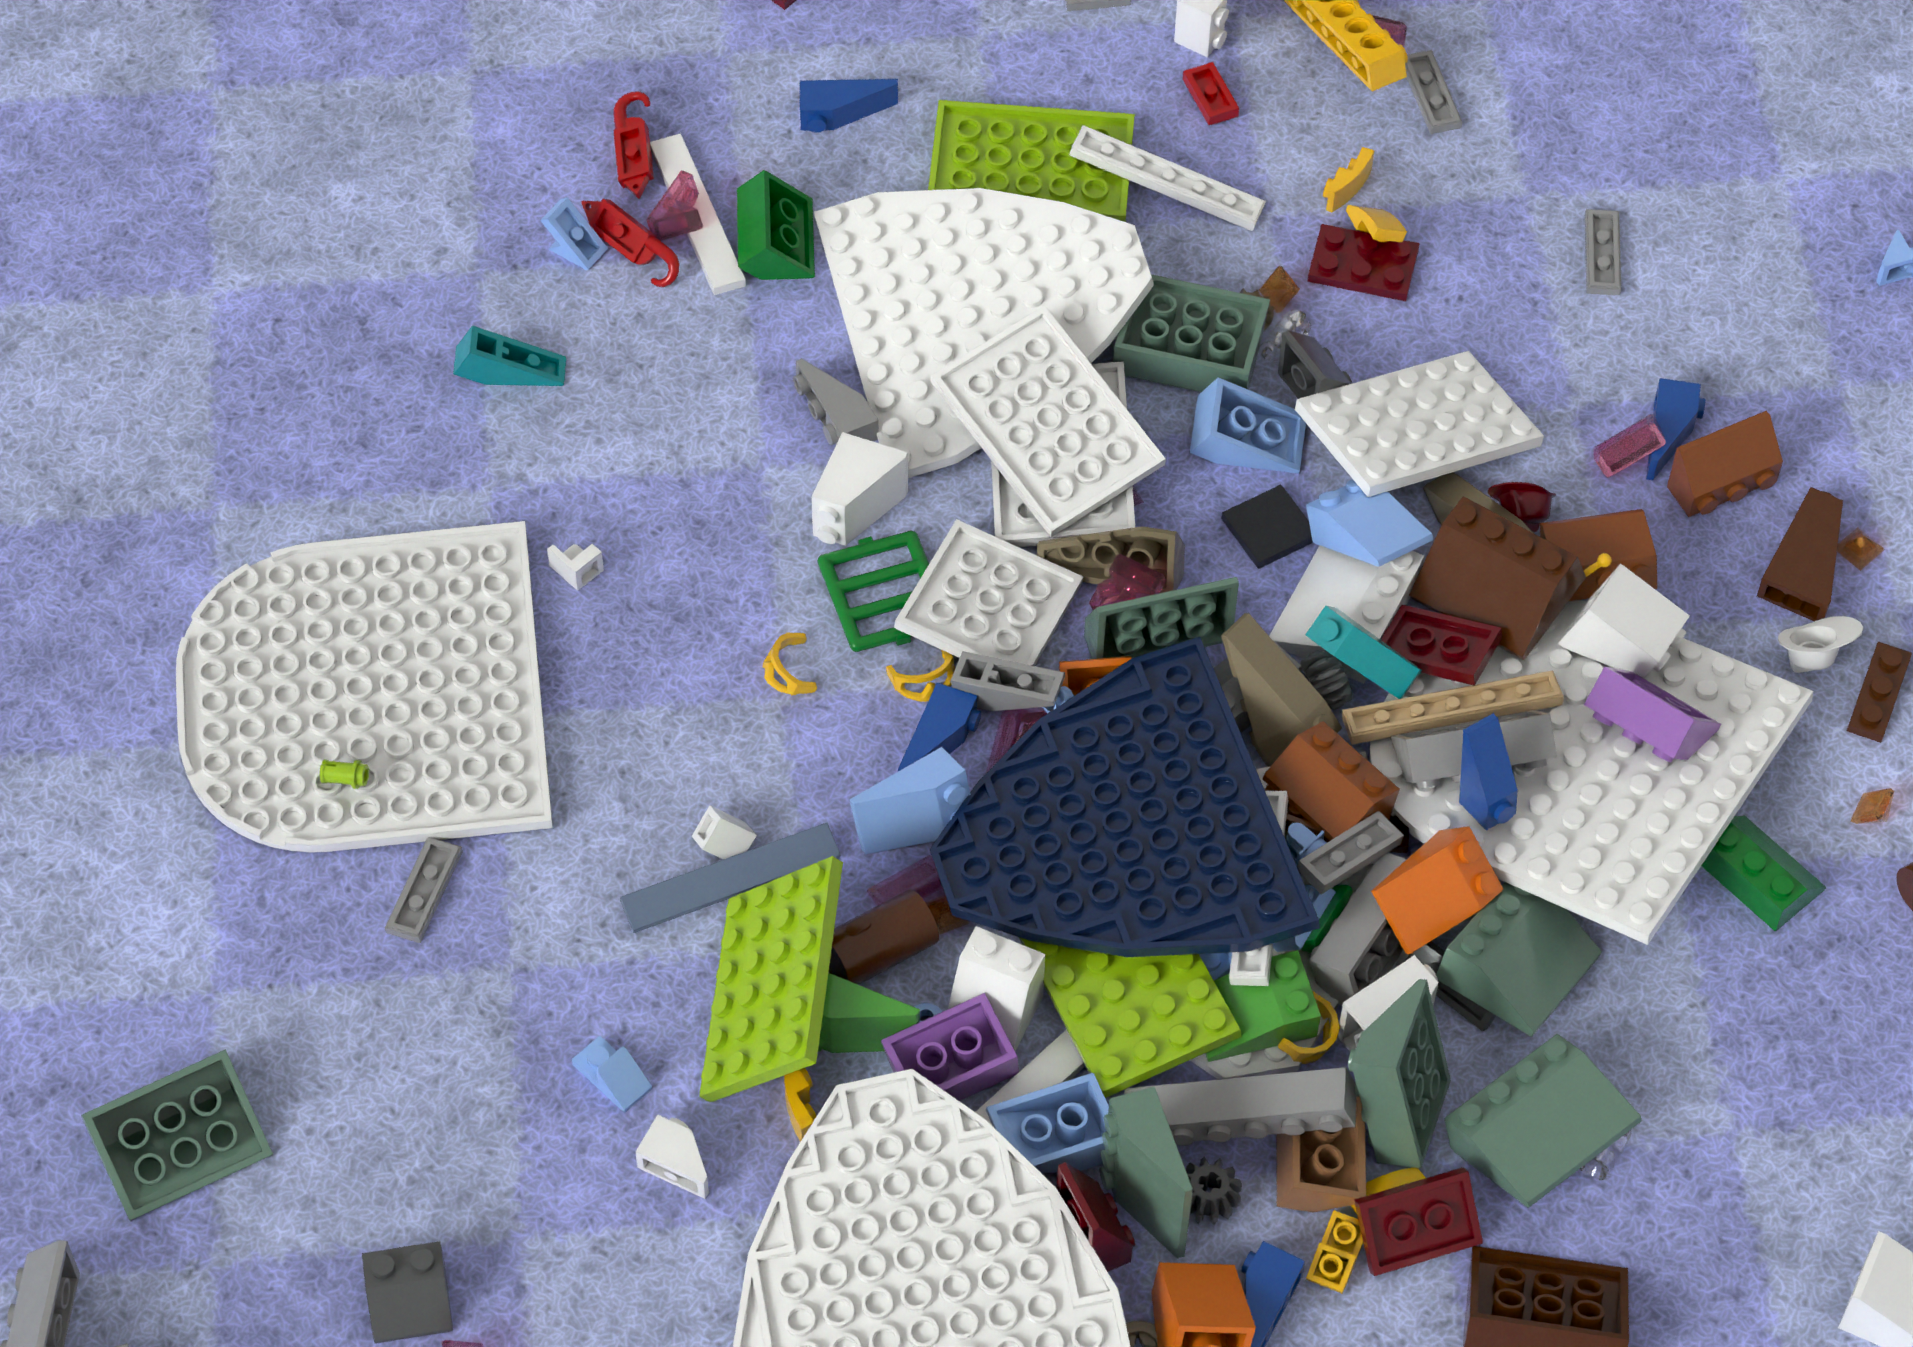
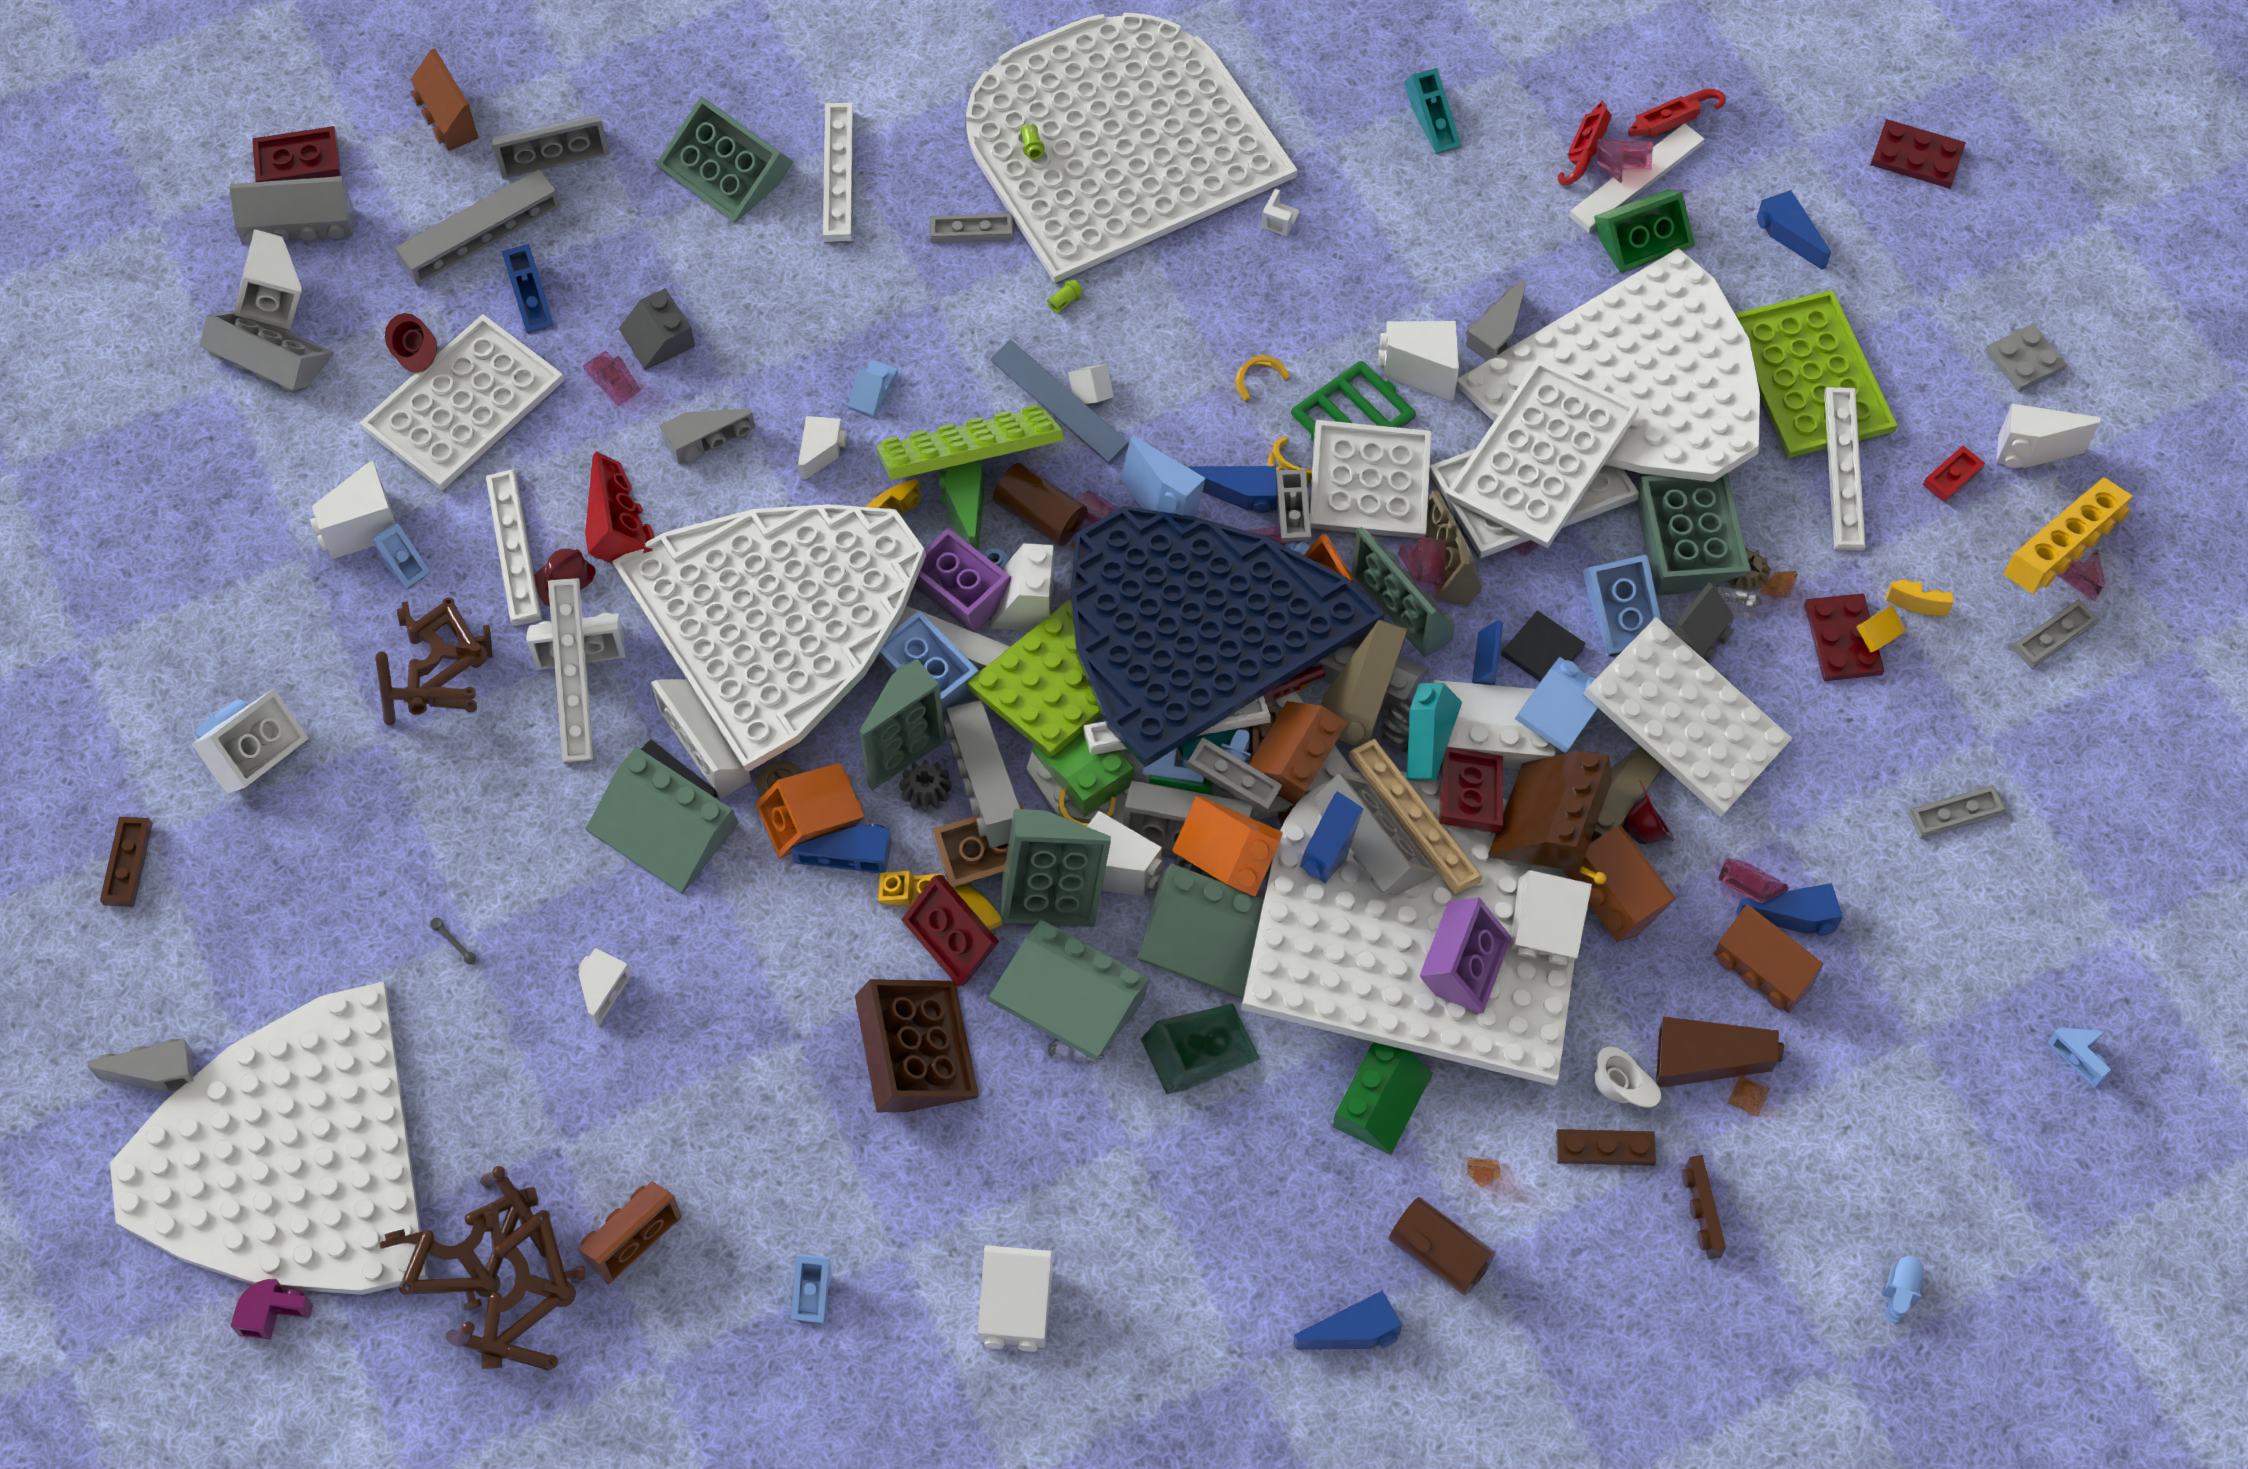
camera: 70 degrees right, 5 degrees up
(262, 1007) = (838, 172): none -> white plate
(573, 235) = (1567, 105): light blue slope -> none
(577, 813) = (1069, 293): none -> lime pin
(589, 1289) = (700, 431): none -> light grey slope
(1096, 1216) = (850, 702): dark red slope -> none
(1260, 575) = (1487, 654): none -> blue slope
(1648, 1023) = (1198, 1047): none -> clear green slope

